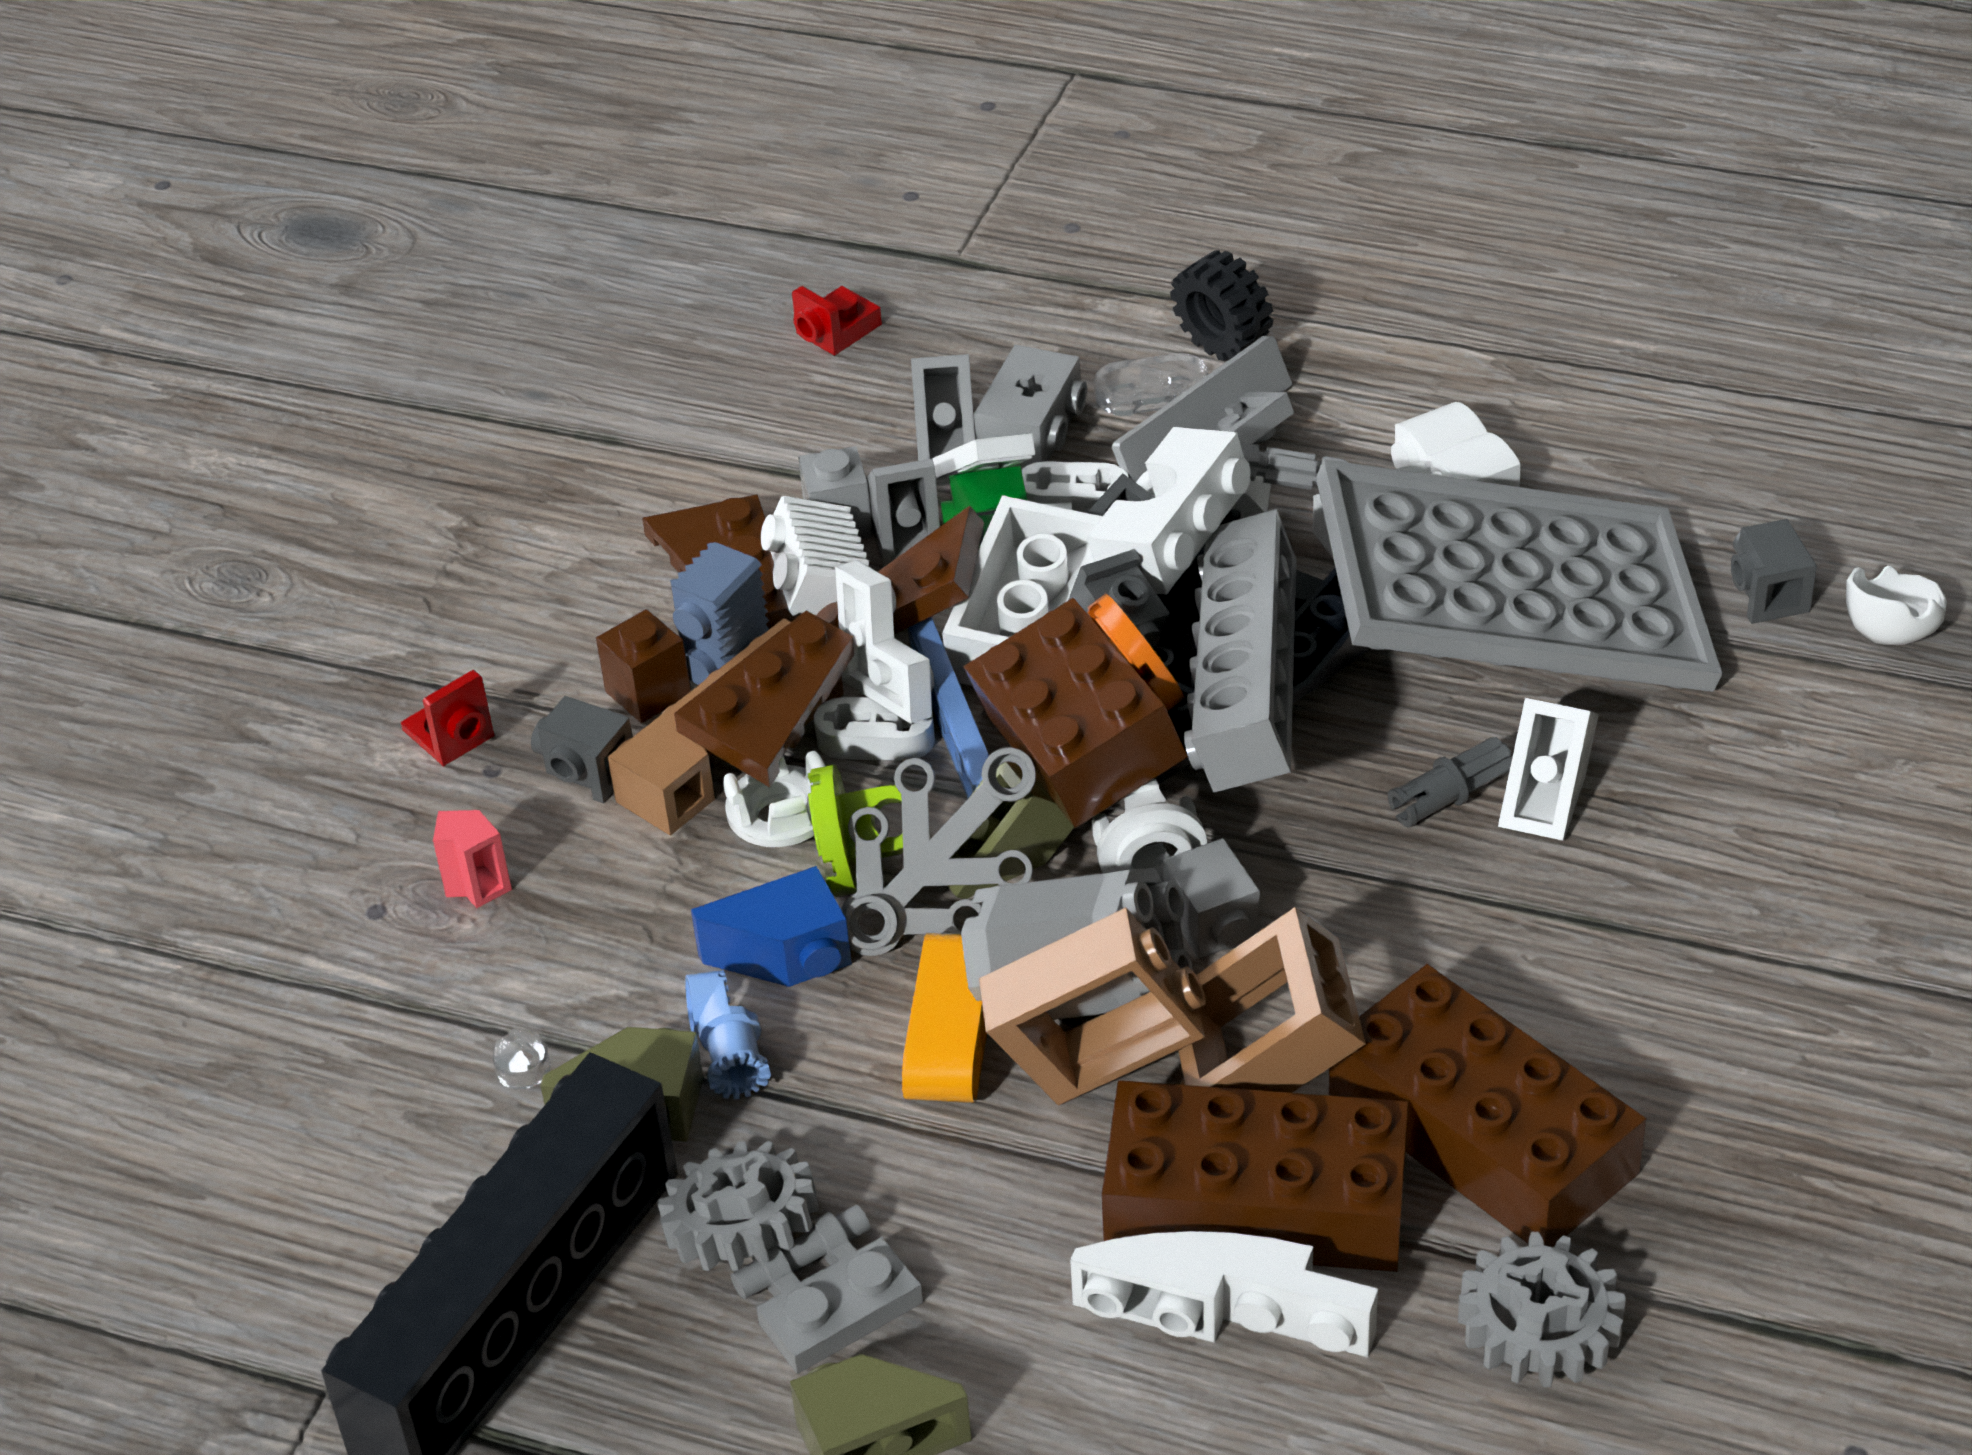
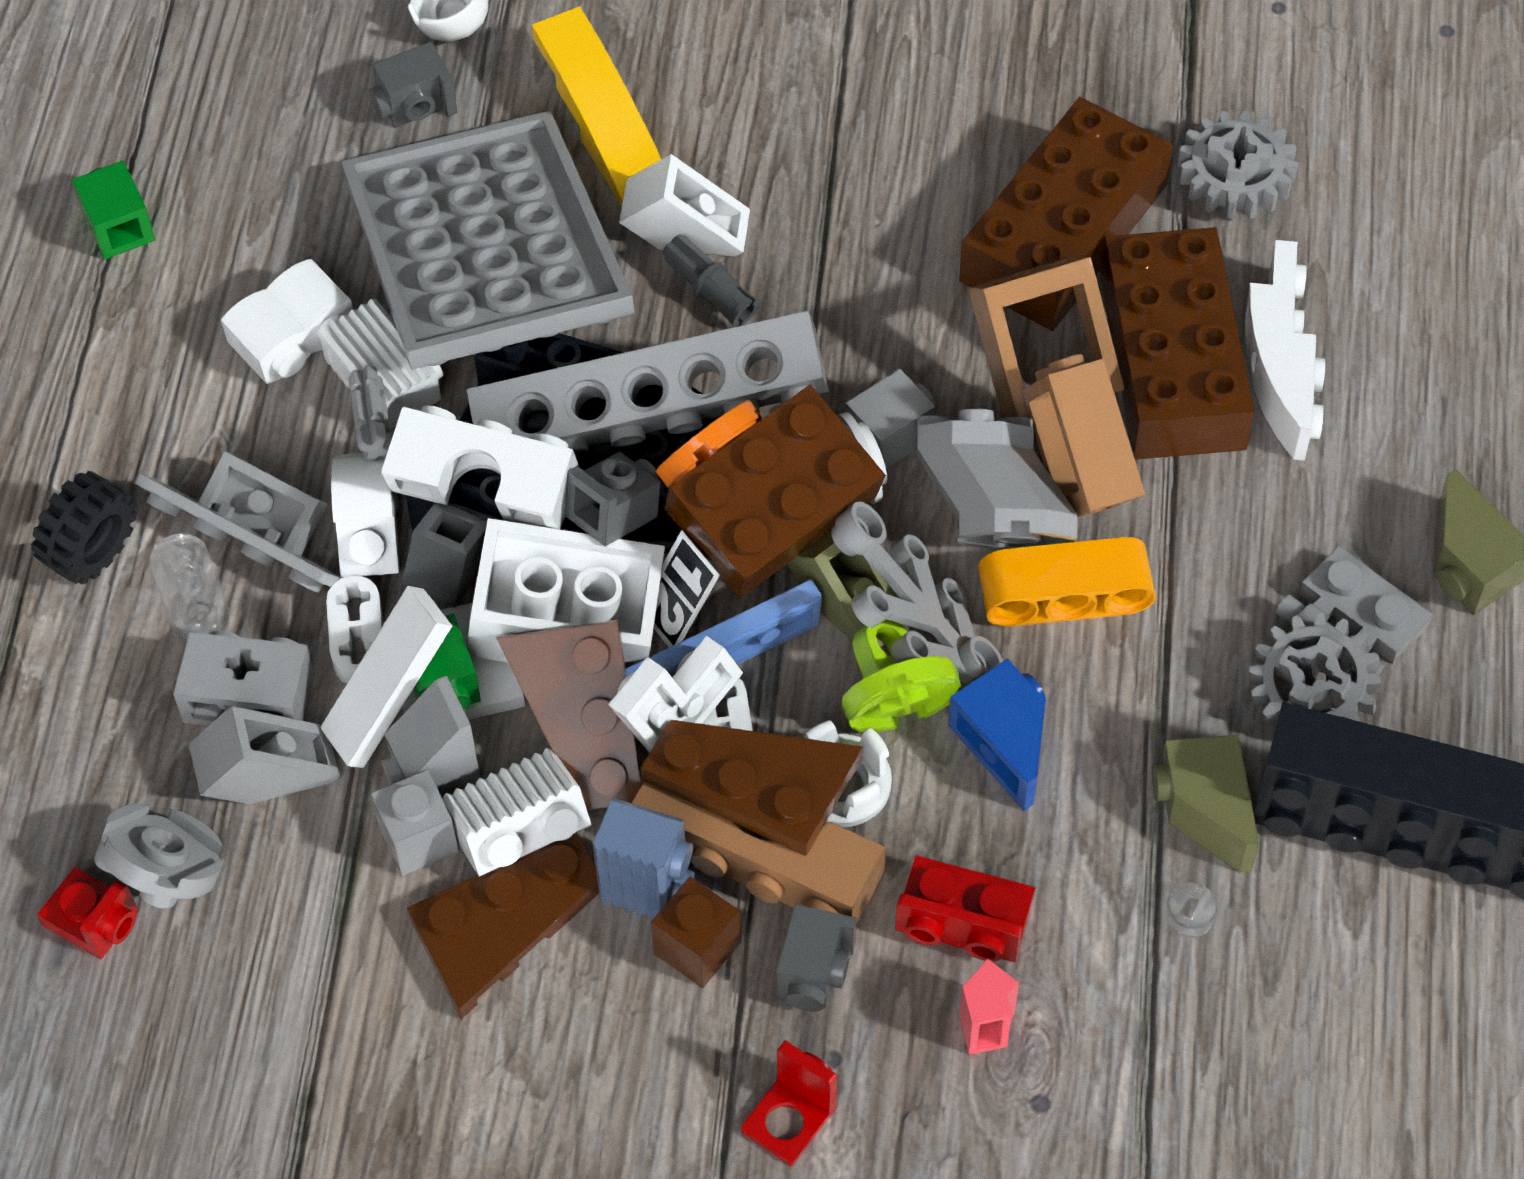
camera: 105 degrees left, 15 degrees up
(592, 872) = (964, 910): none -> red bracket
(728, 1035) = (1115, 756): light blue connector -> none
(839, 361) = (160, 854): none -> light grey plate
(1627, 351) = (113, 209): none -> green brick
(1696, 717) = (596, 98): none -> yellow slope

